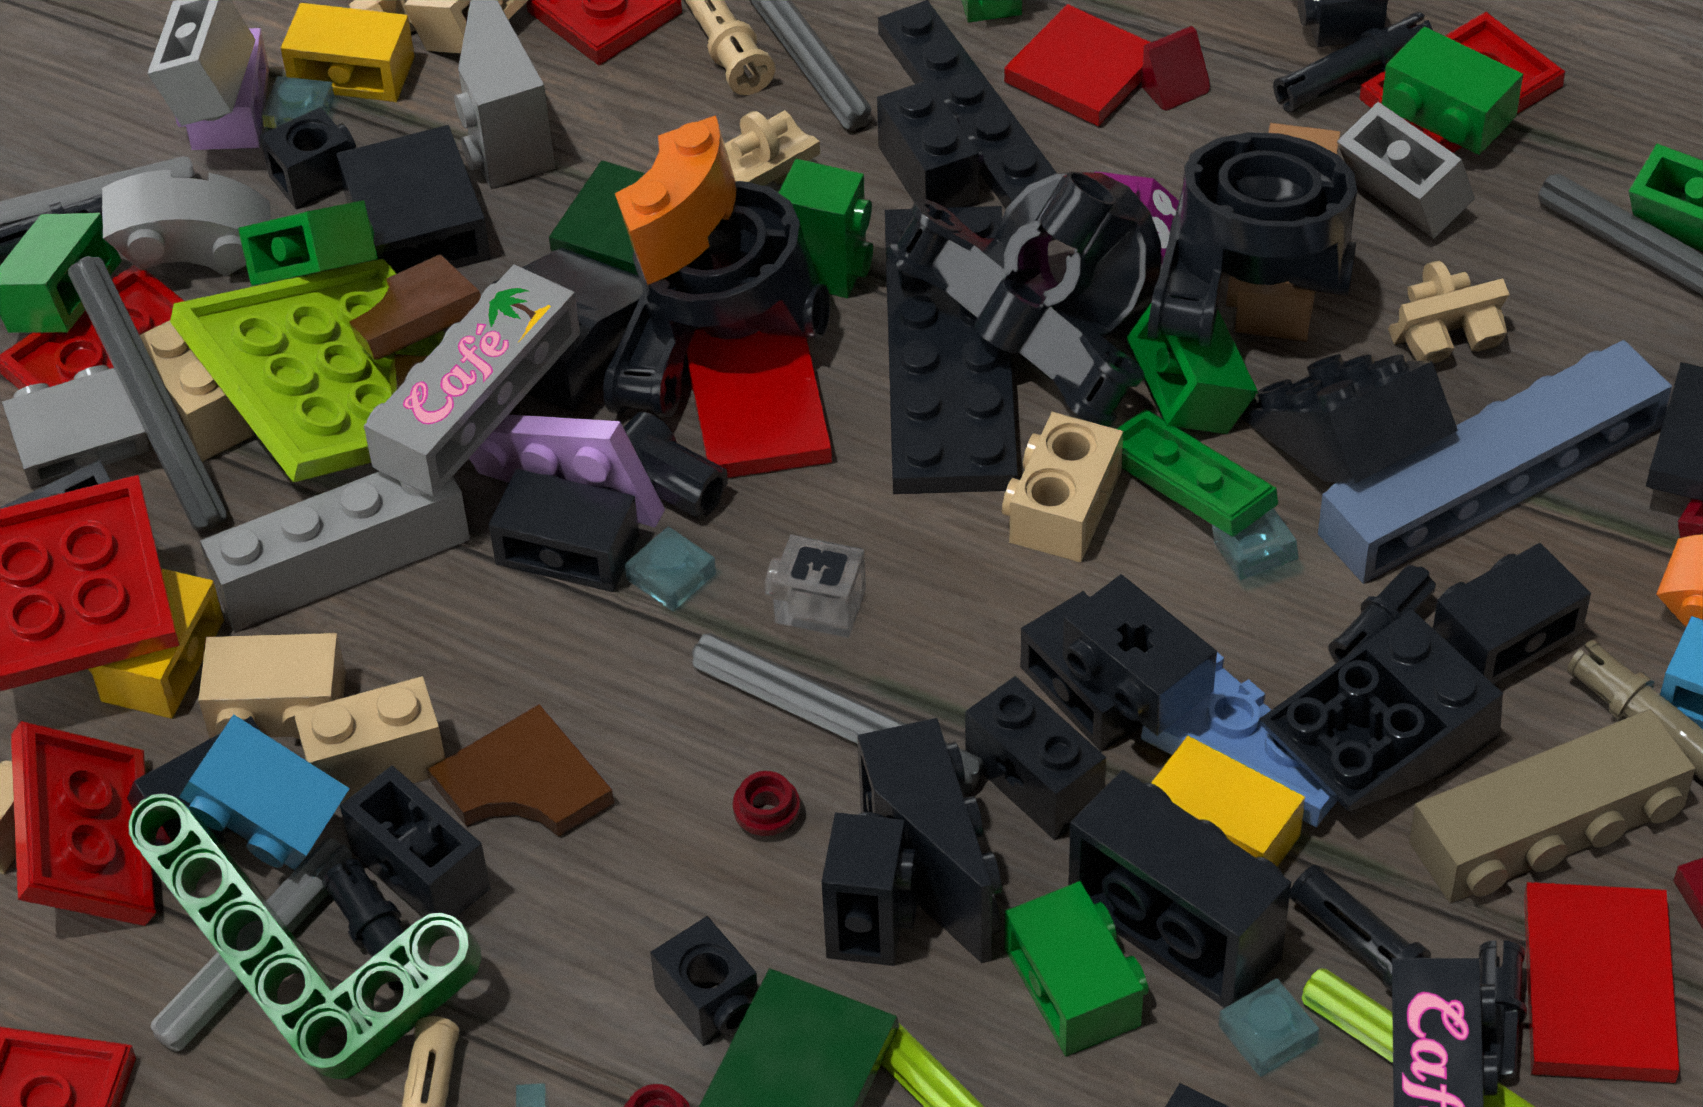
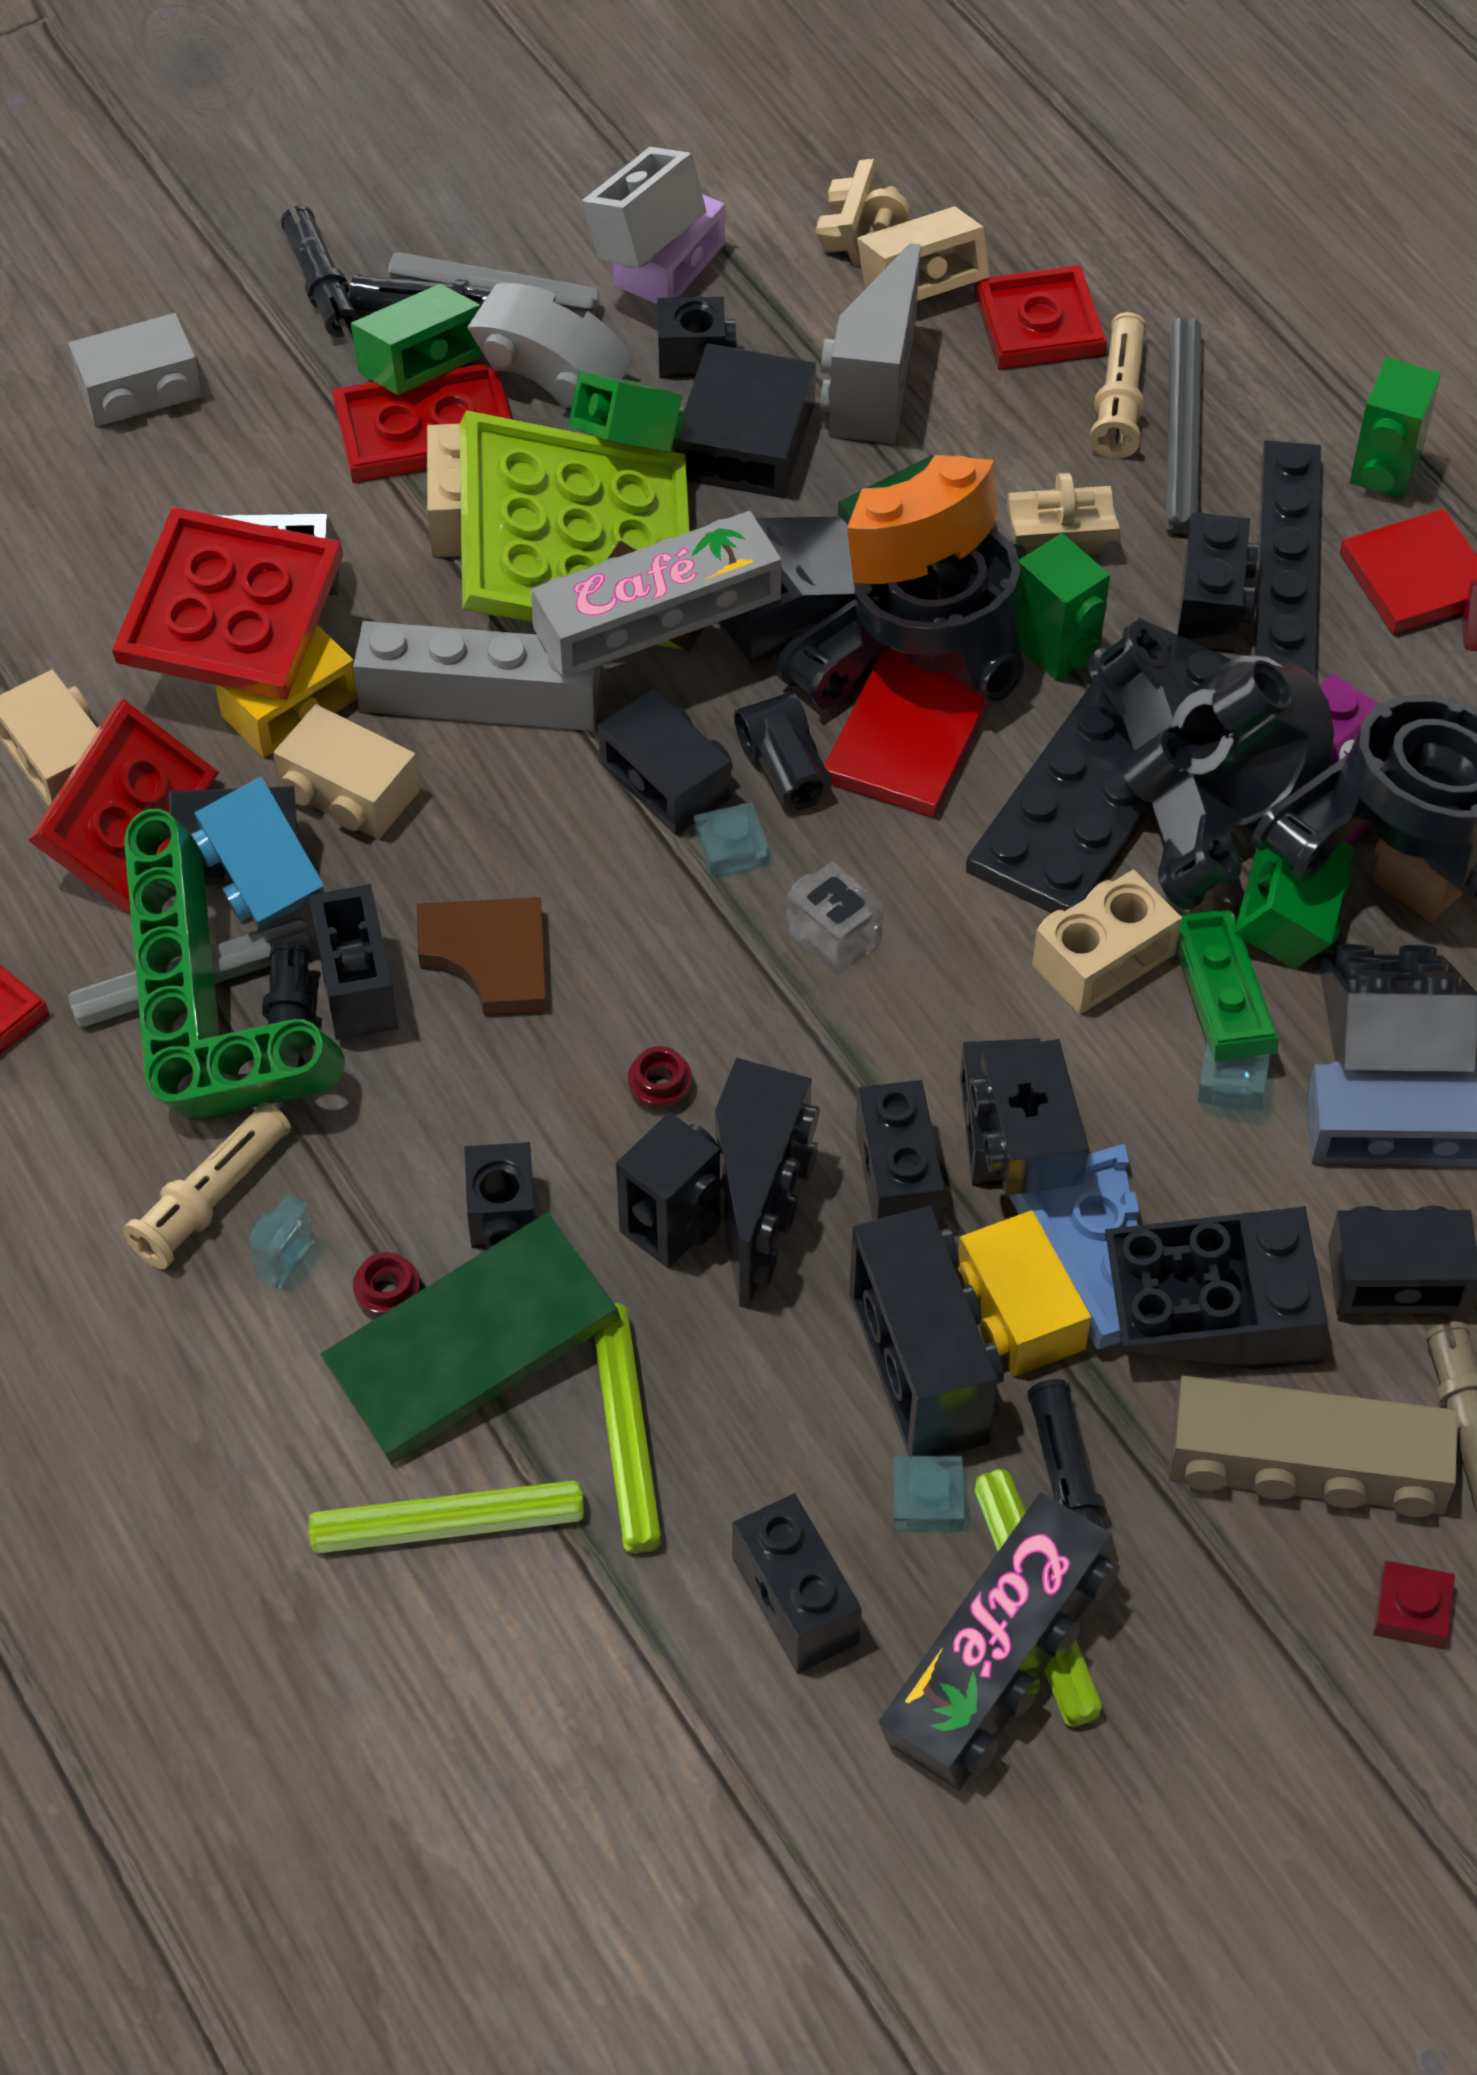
camera: 30 degrees right, 5 degrees up
(74, 425) = (346, 475): light grey brick -> none
(147, 394) = (409, 477): dark grey axle -> none
(294, 98) = (726, 279): clear light blue plate -> none
(353, 48) = (790, 258): yellow brick -> none
(370, 732) = (397, 853): tan brick -> none
(415, 307) = (663, 510): reddish brown tile -> none
(574, 450) = (711, 700): lavender wing -> none
(803, 696) = (771, 1027): dark grey axle -> none
(1075, 967) = (799, 1351): green brick -> none
(1402, 594) = (1319, 1194): black axle -> none
(1508, 1003) = (1131, 1592): black axle -> none
(1600, 982) = (1240, 1619): red tile -> none

